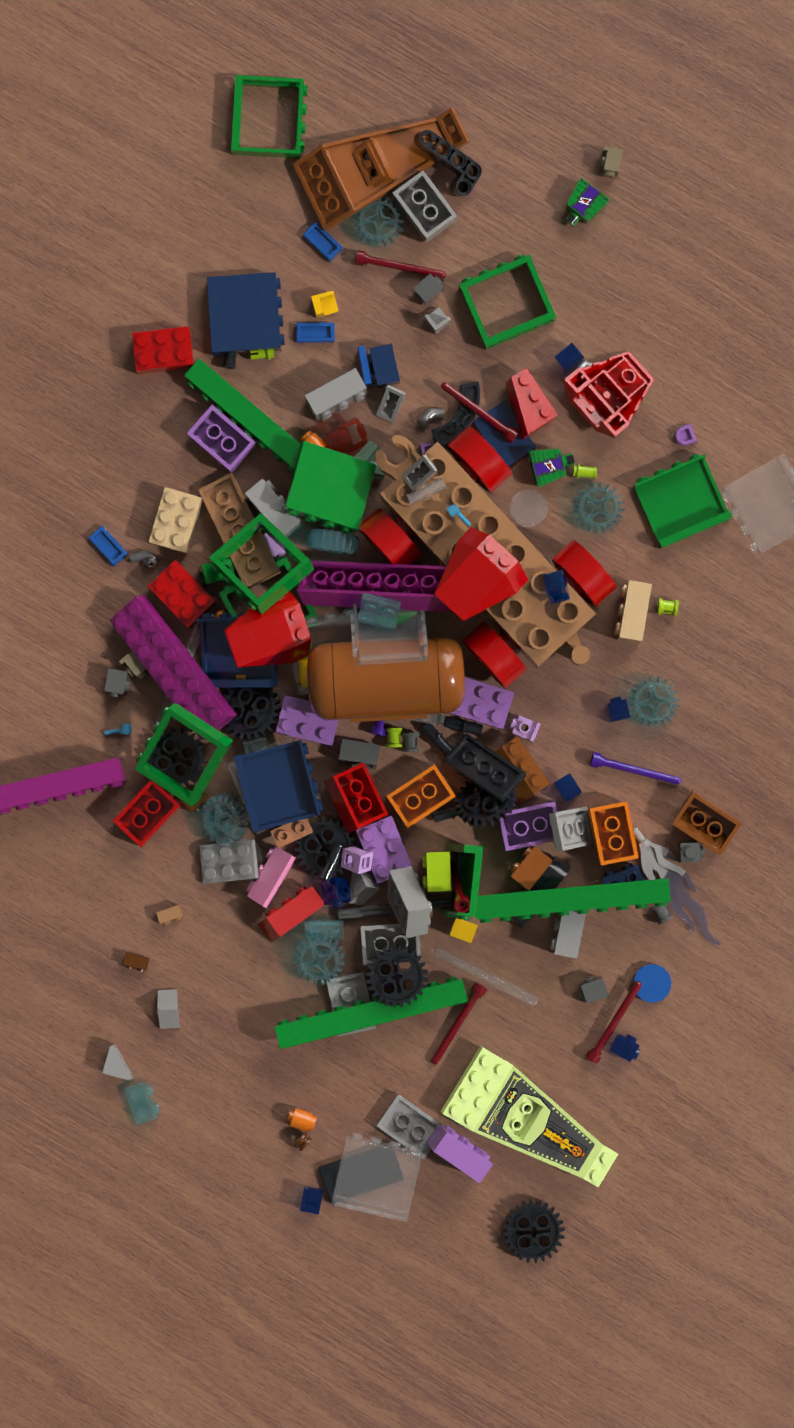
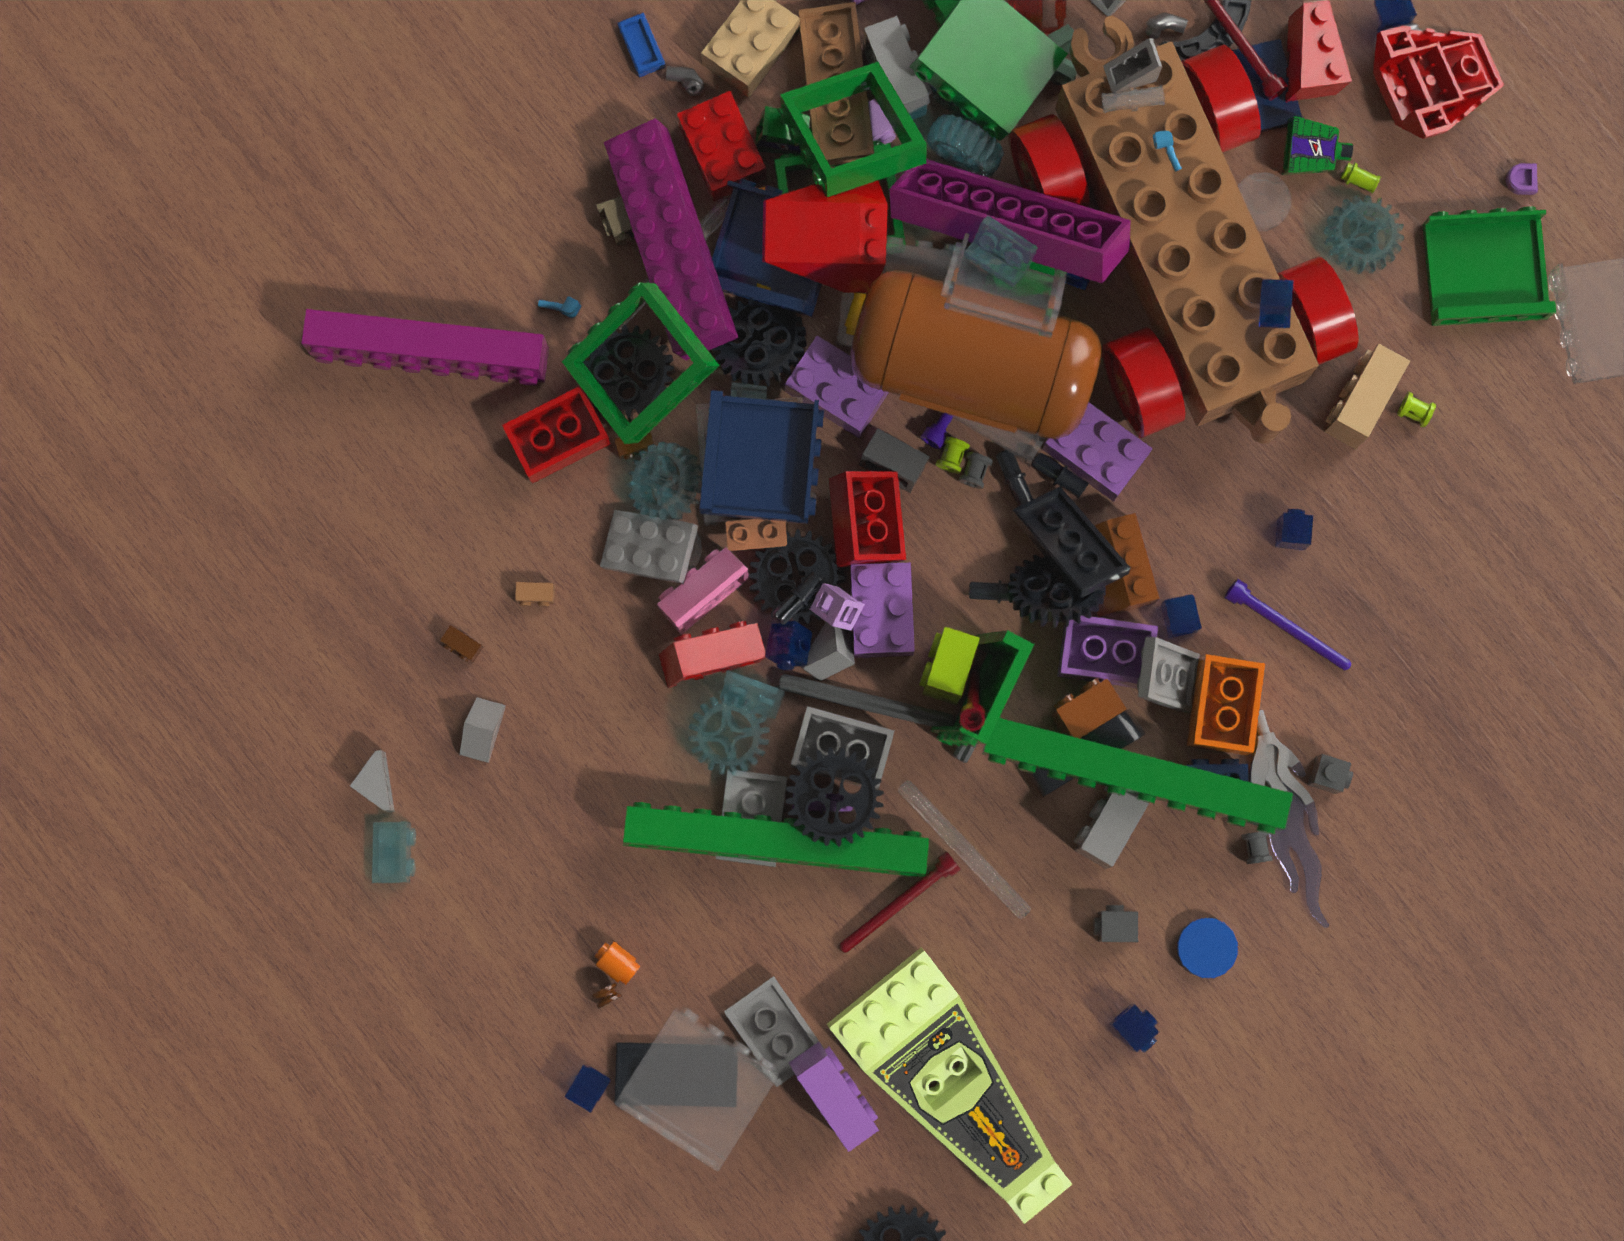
camera: 15 degrees right, 5 degrees down
(117, 683) = (582, 236): dark grey brick -> none
(409, 902) = (891, 694): light grey brick -> none
(421, 796) = (963, 551): orange brick -> none
(463, 930) = (955, 768): yellow panel -> none
(478, 575) = (1169, 243): red wedge -> none
(530, 734) = (1149, 519): lavender brick -> none
(595, 1053) = (1087, 1021): dark red piece -> none
(652, 692) = (1338, 534): clear light blue gear -> none
(706, 822) = (1371, 738): dark orange slope -> none

